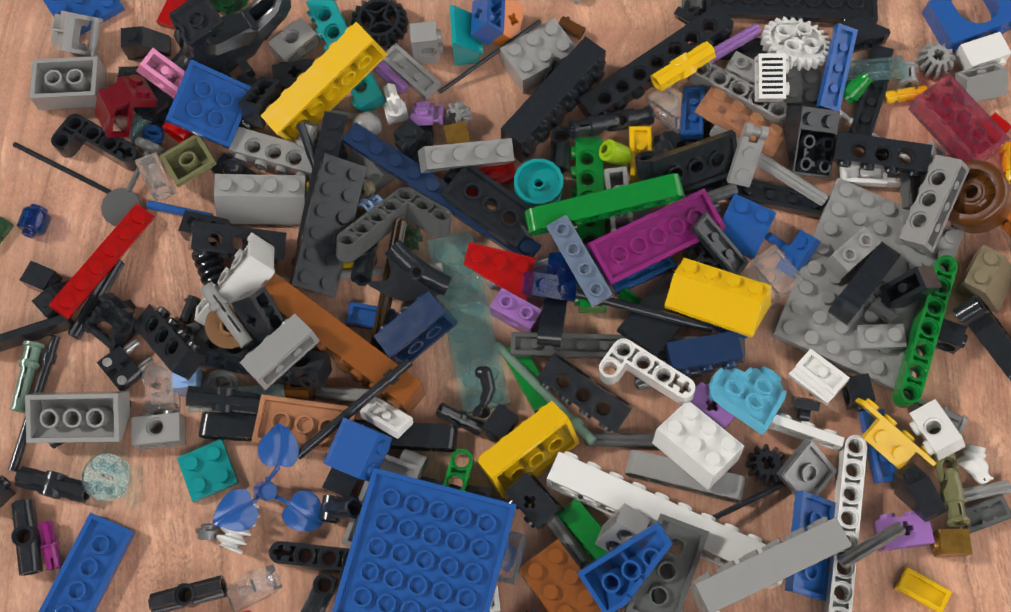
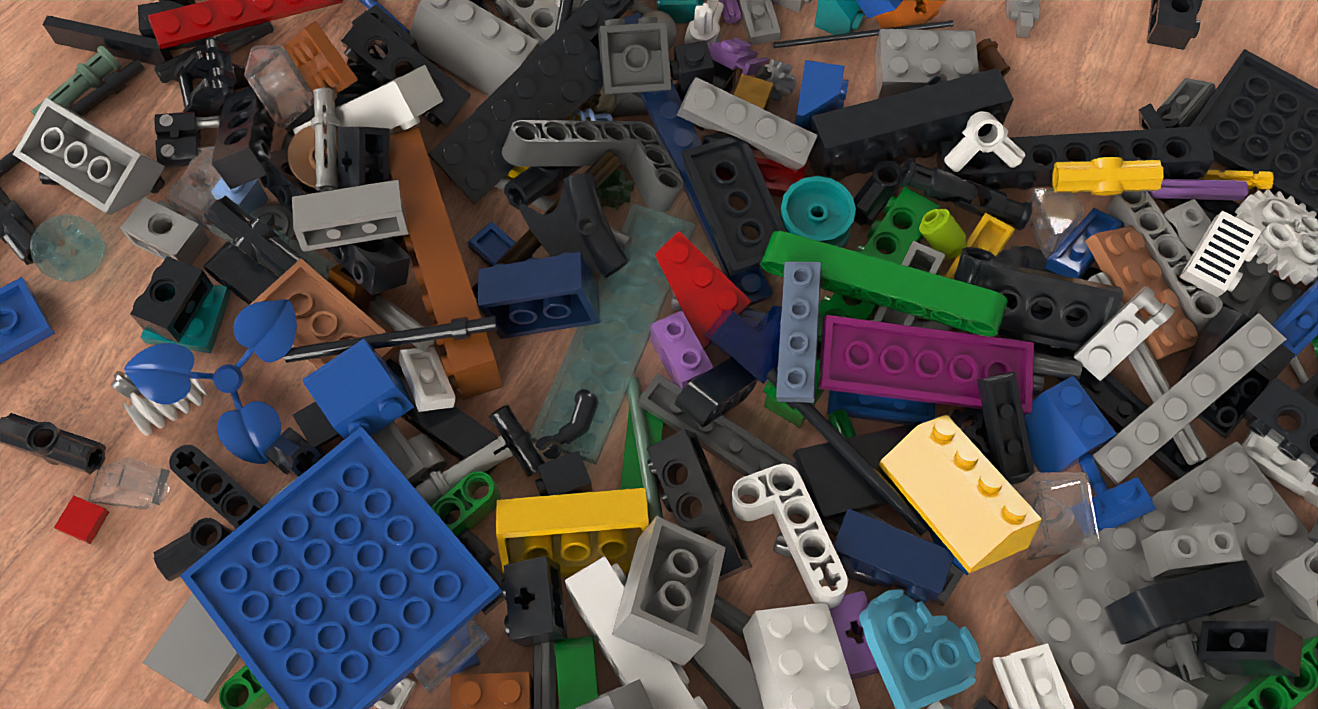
camera: 30 degrees right, 5 degrees down
(164, 296) = (278, 83): none -> clear slope
(185, 271) = (319, 60): none -> dark orange plate
(207, 477) = (174, 316): none -> black brick
(375, 153) = (634, 56): none -> dark grey plate
(437, 471) = (481, 461): none -> light grey pin
(492, 112) = (820, 91): none -> blue slope
(607, 447) = (670, 591): none -> light grey brick
(610, 82) = (994, 141): none -> white axle
(763, 17) = (1262, 180): none -> yellow axle
(801, 171) = (1188, 398): none -> light grey plate

